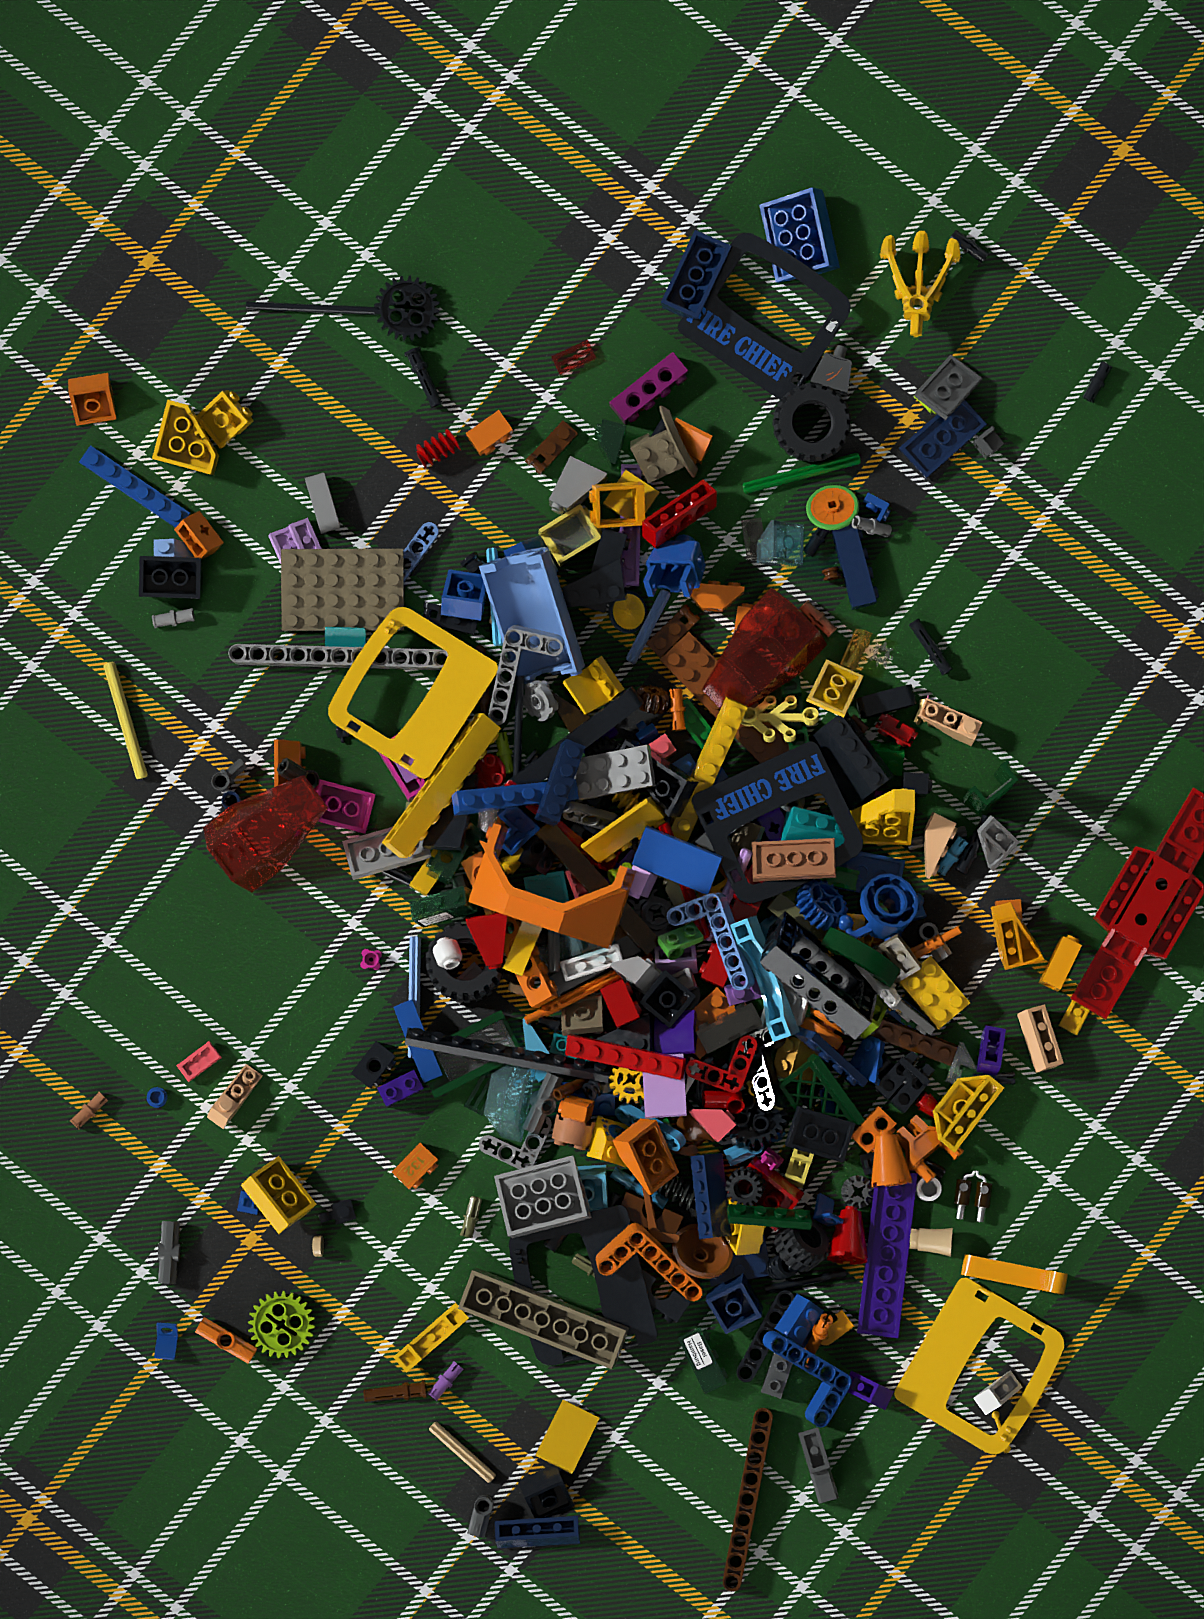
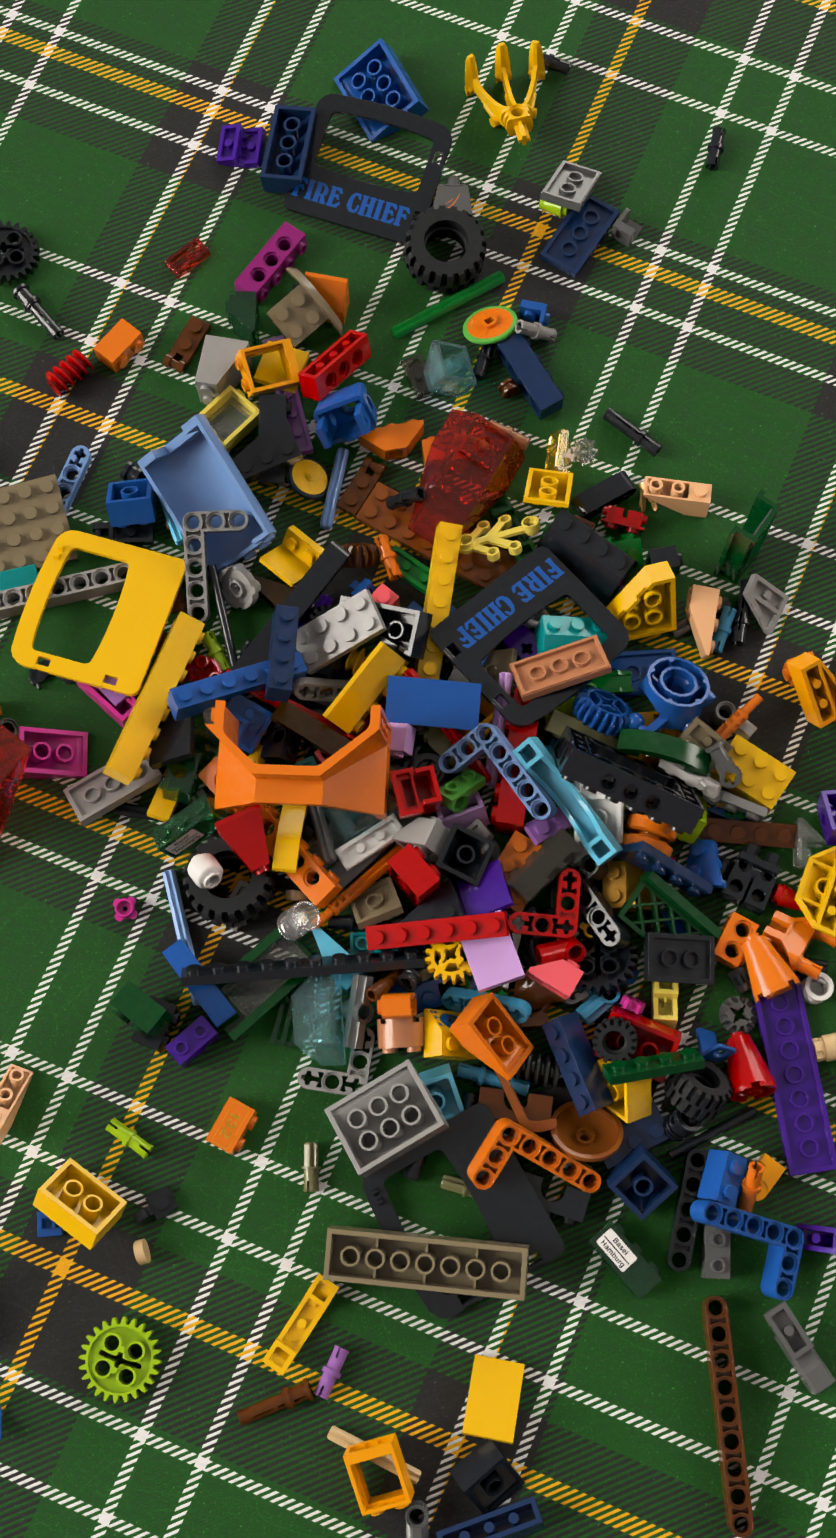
camera: 20 degrees left, 10 degrees down
(214, 1333) = (43, 1393): orange piece -> none
(329, 1152) = (129, 1138): none -> lime pin
(366, 1054) = (142, 1010): none -> dark green brick
(461, 1447) = (373, 1449): none -> light orange window
(513, 1014) = (298, 920): none -> clear wheel
(640, 934) = (416, 791): none -> red plate
(652, 254) = (241, 146): none -> dark purple slope
(706, 661) = (405, 498): none -> black pin
(908, 982) = (723, 764): none -> dark grey connector

